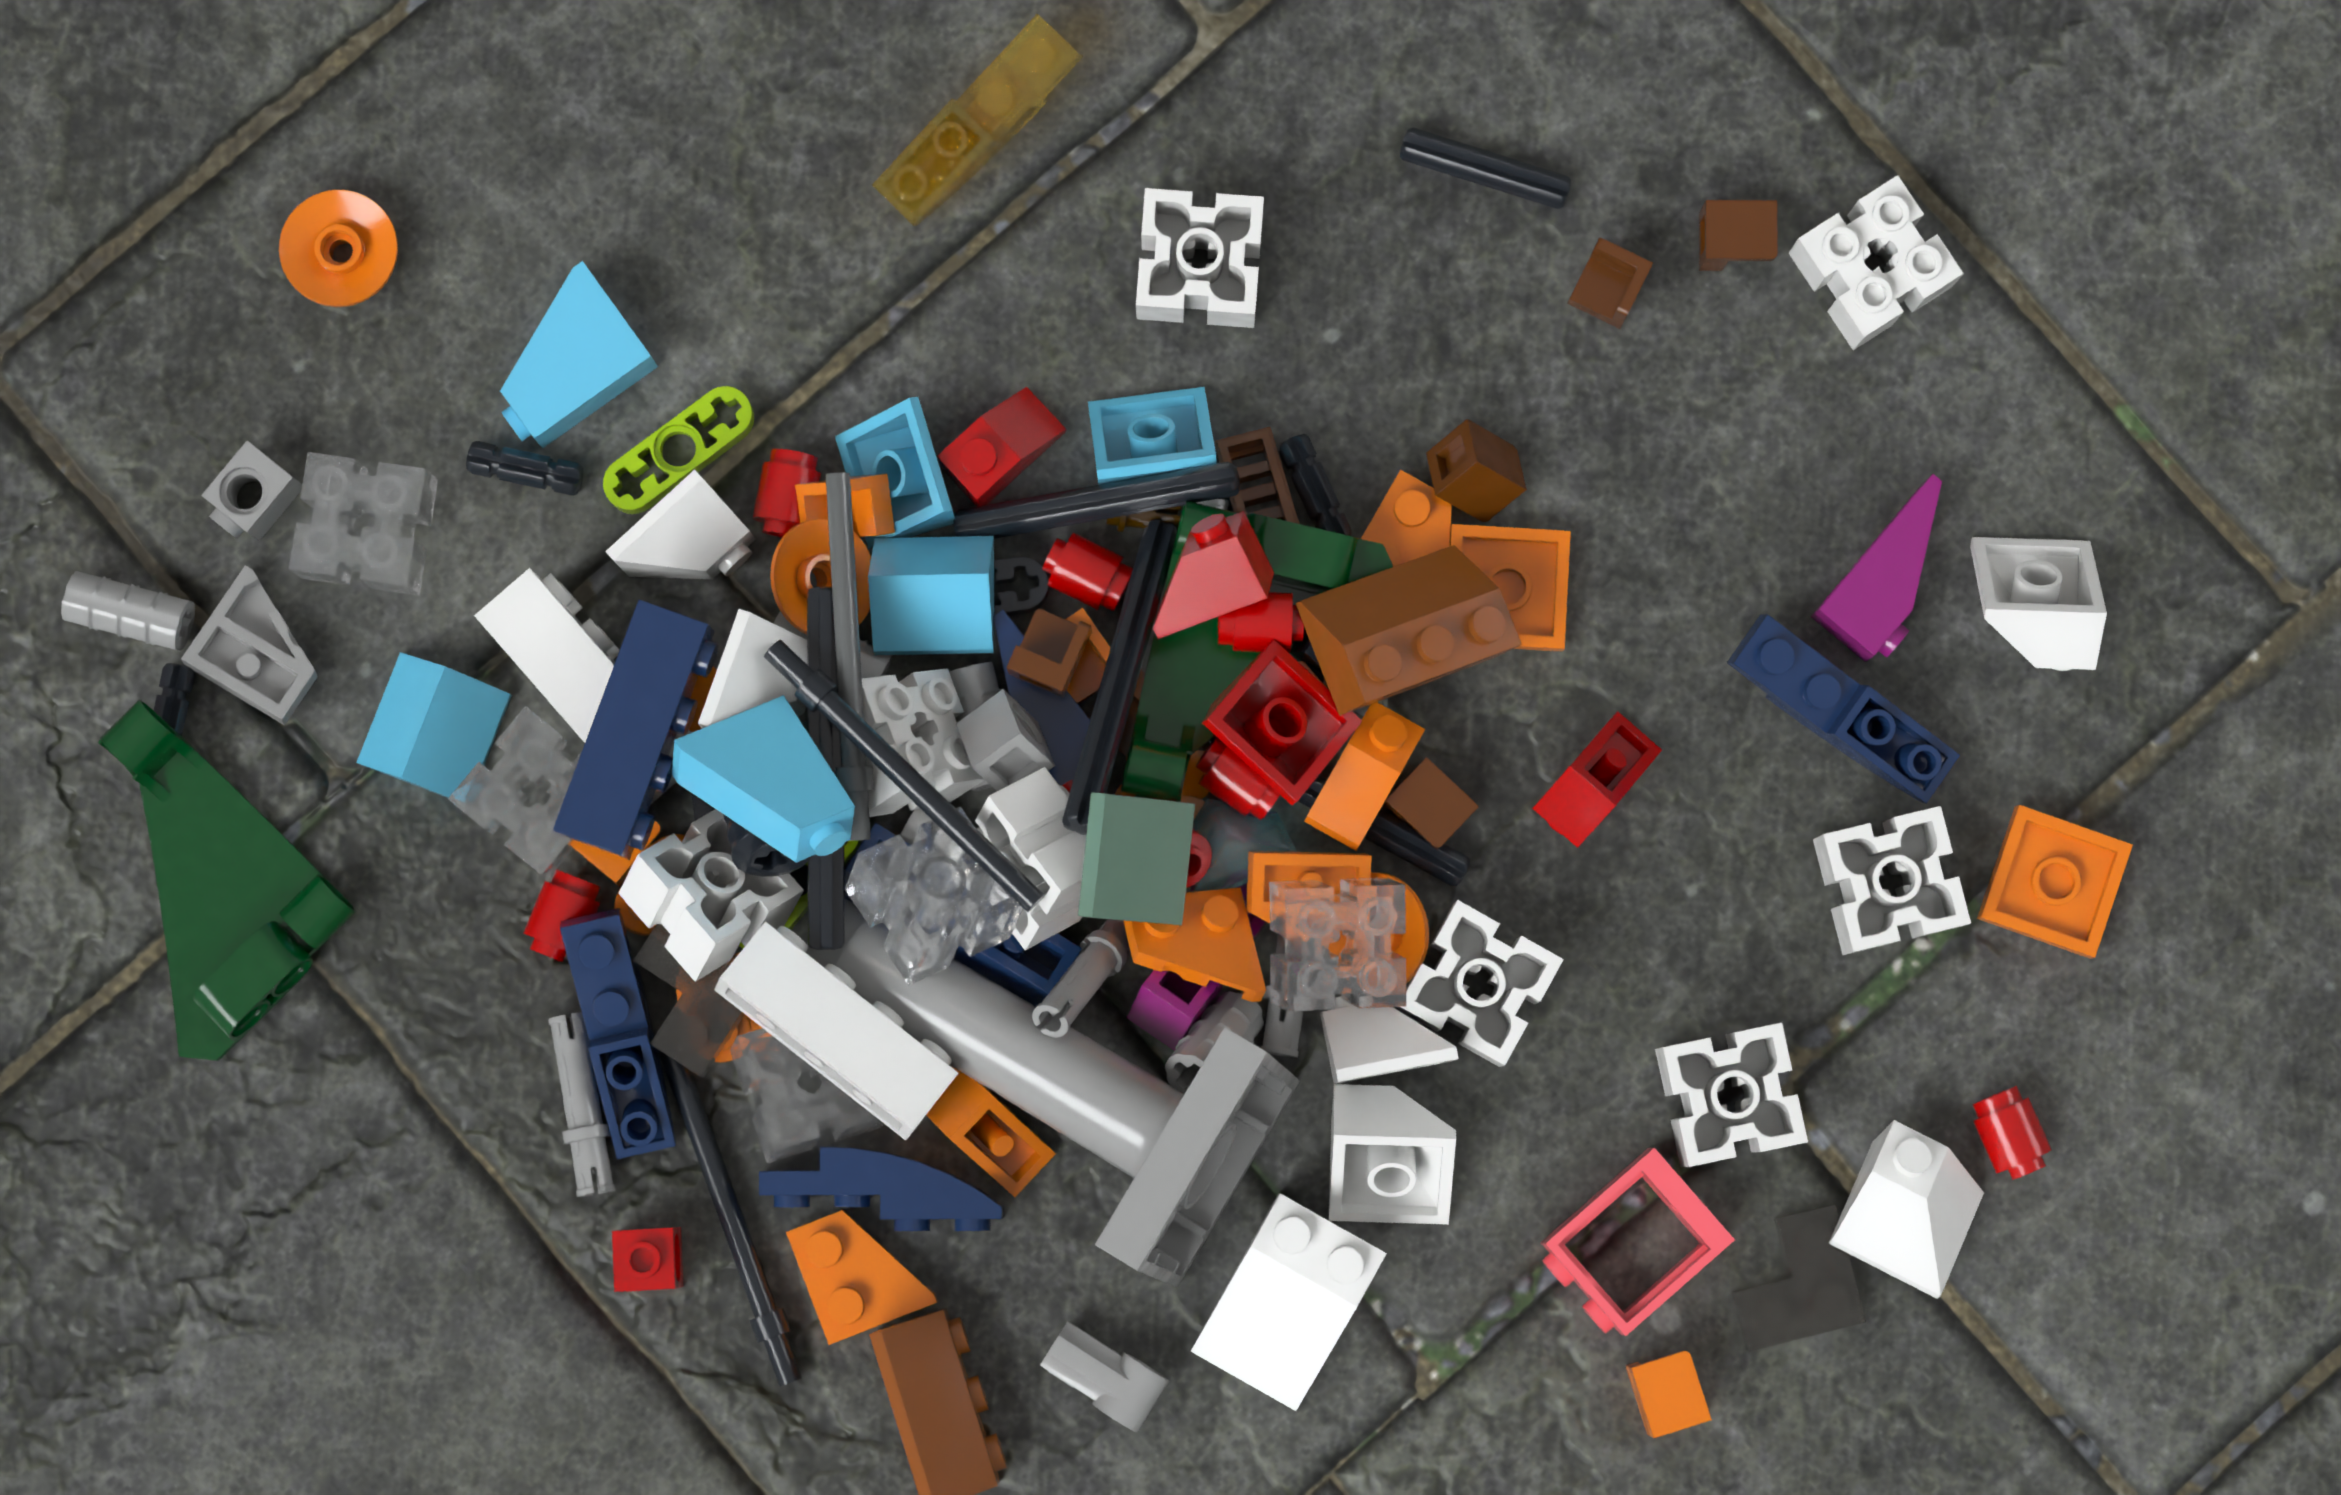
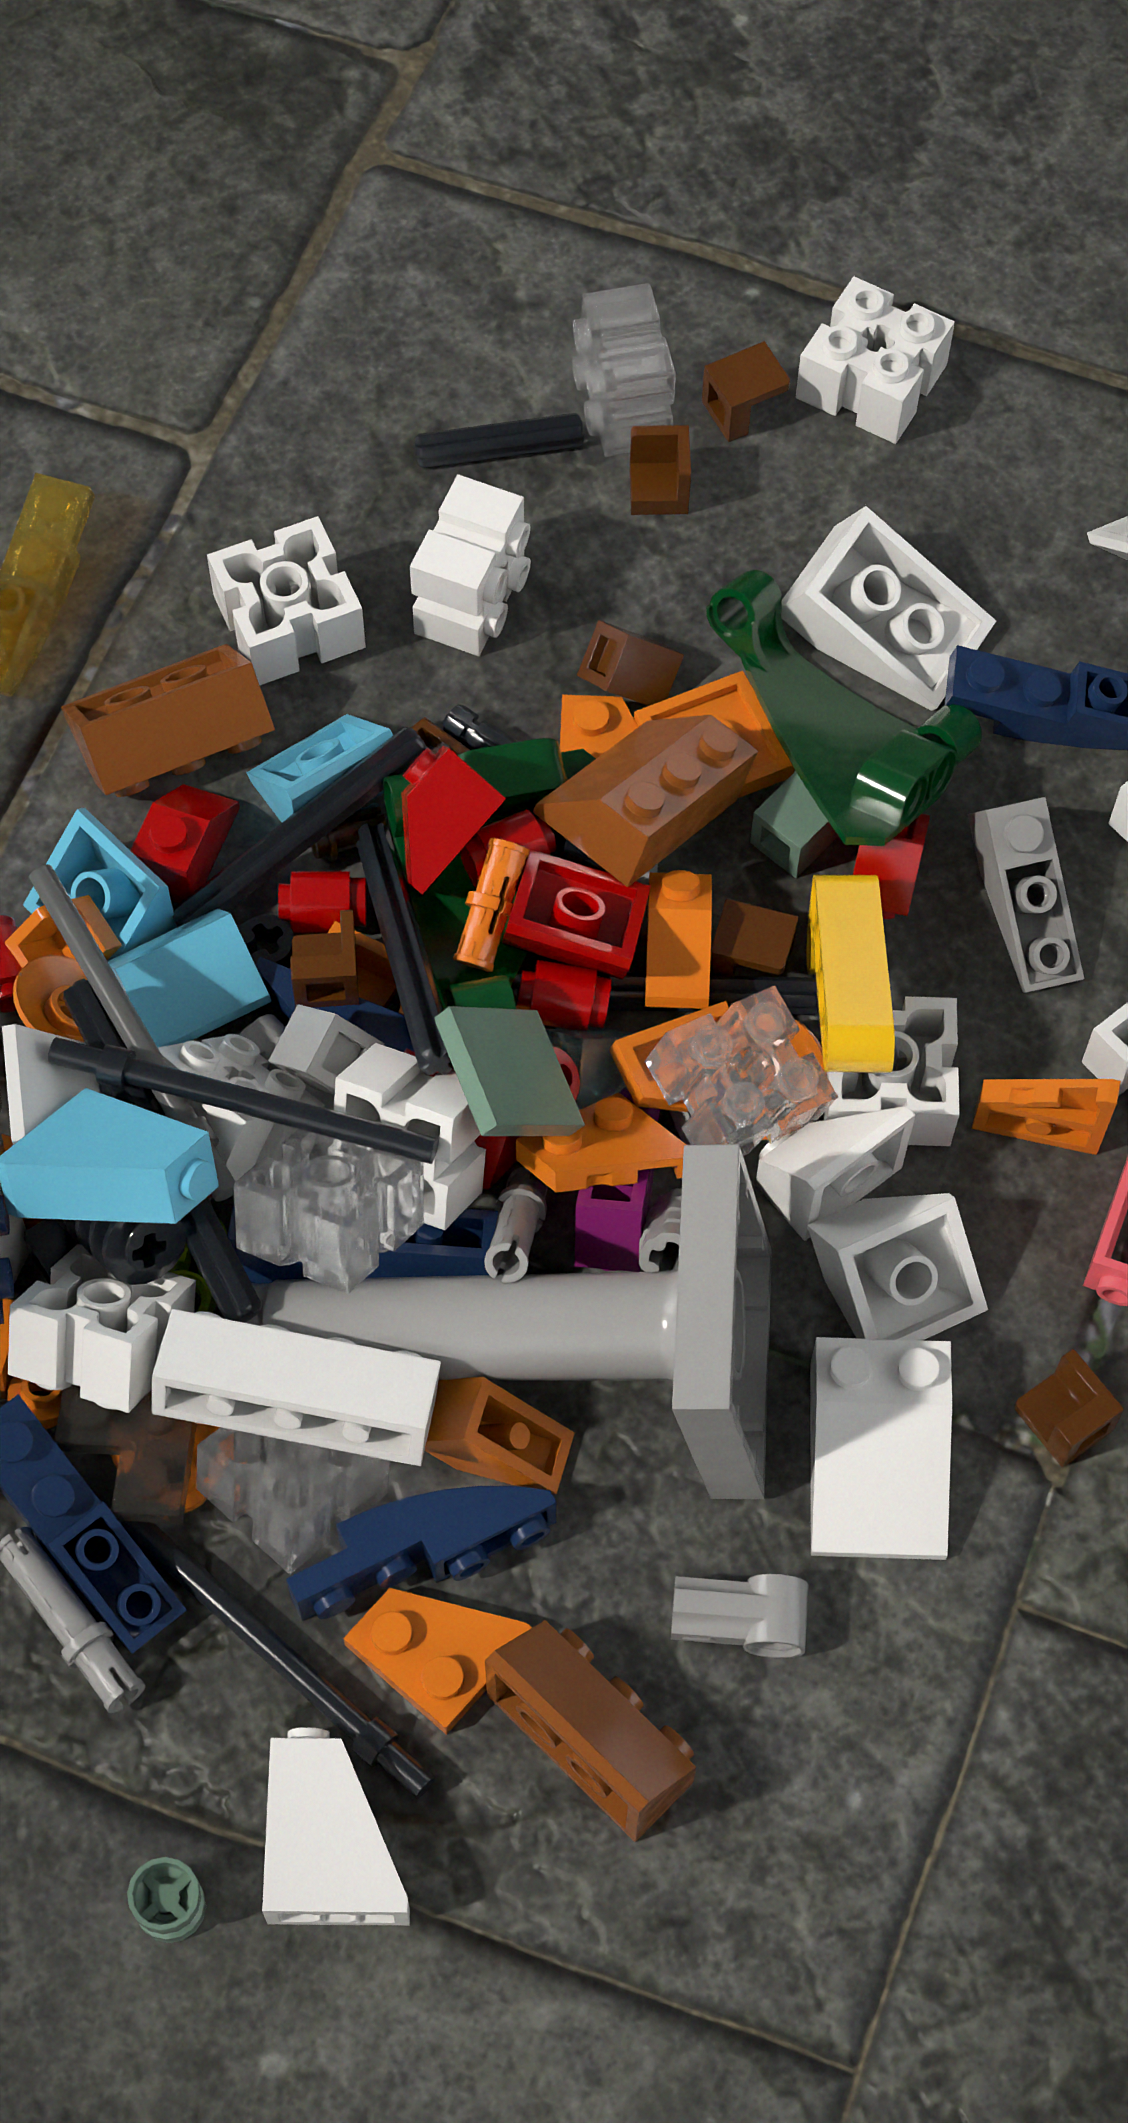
camera: 30 degrees left, 20 degrees down
(542, 1371) = (157, 1890): none -> sand green wheel
(647, 1259) = (213, 1732): red brick -> none
(693, 1385) = (323, 1841): none -> white slope
(1040, 318) = (169, 720): none -> dark orange slope
(1211, 677) = (491, 904): none -> orange pin
(1377, 308) = (470, 566): none -> white brick
(1459, 1346) = (1069, 1409): none -> reddish brown panel
(1481, 898) = (851, 973): none -> yellow beam
(1540, 703) = (791, 827): none -> sand green brick
(1606, 1098) = (1048, 1111): none -> orange wing
(1621, 663) = (853, 758): none -> dark green panel
(1632, 167) = (622, 365): none -> clear brick
(1698, 871) = (1027, 892): none -> light grey slope
(1733, 532) = (884, 609): none -> white slope
(1883, 583) = (1038, 591): magenta slope -> none

